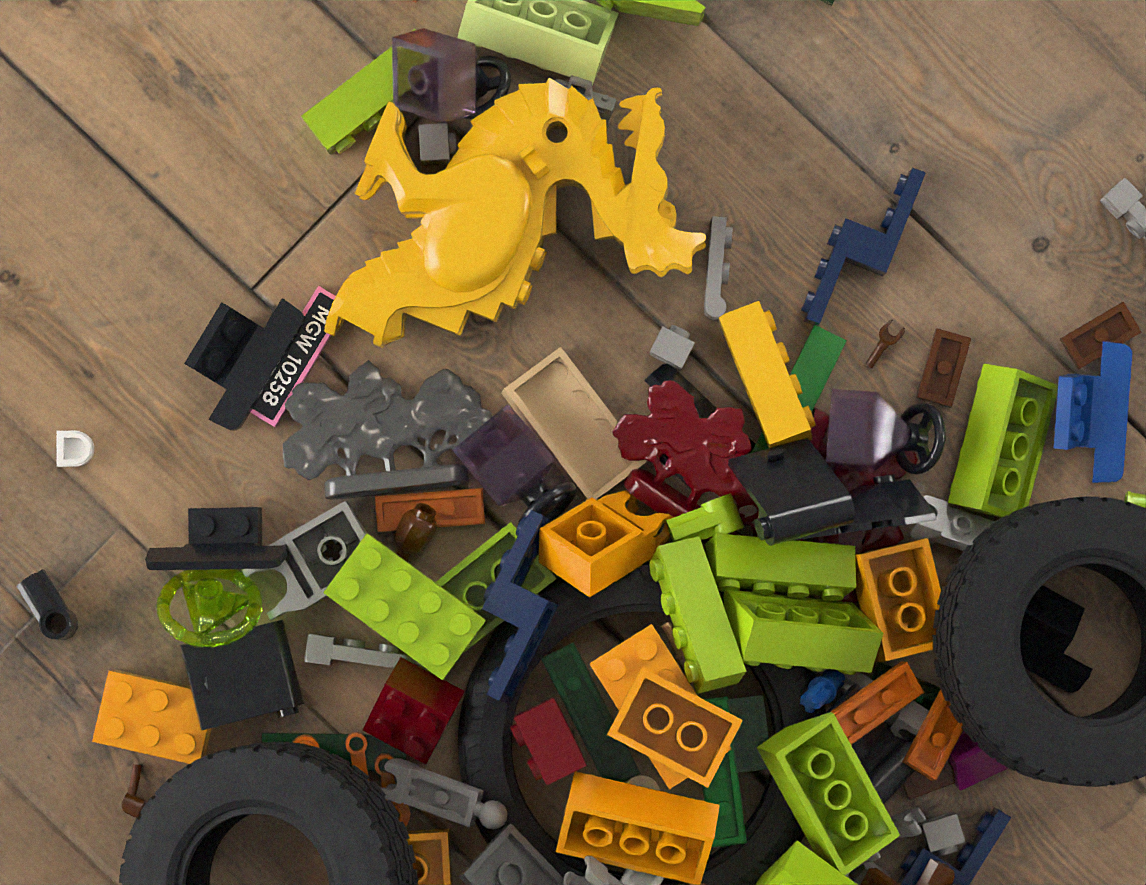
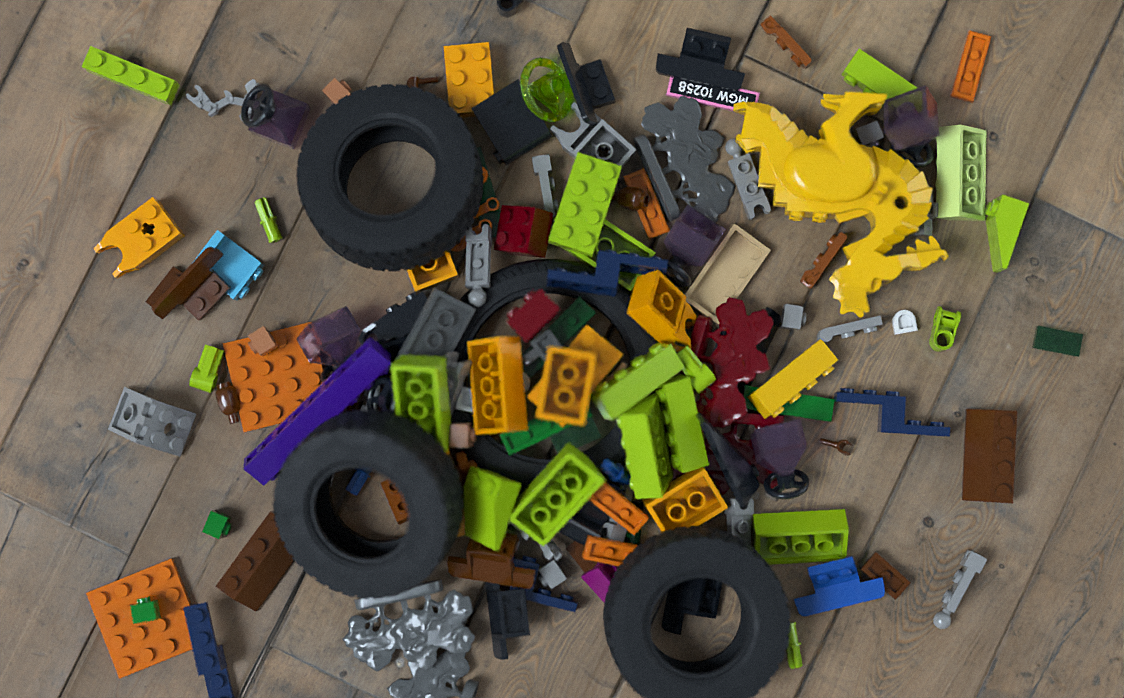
camera: 75 degrees right, 0 degrees up
(253, 222) = (785, 41): none -> dark orange hinge
(443, 348) = (746, 180): none -> light grey plate
(597, 742) = (540, 347): none -> dark grey plate
(603, 275) = (822, 261): none -> dark orange hinge
(732, 183) = (904, 322): none -> white tile
(760, 125) = (944, 324): none -> lime piece
(793, 491) = (730, 415): black door -> none
(943, 368) = (833, 486): reddish brown plate -> none
(972, 123) = (989, 455): none -> reddish brown slope

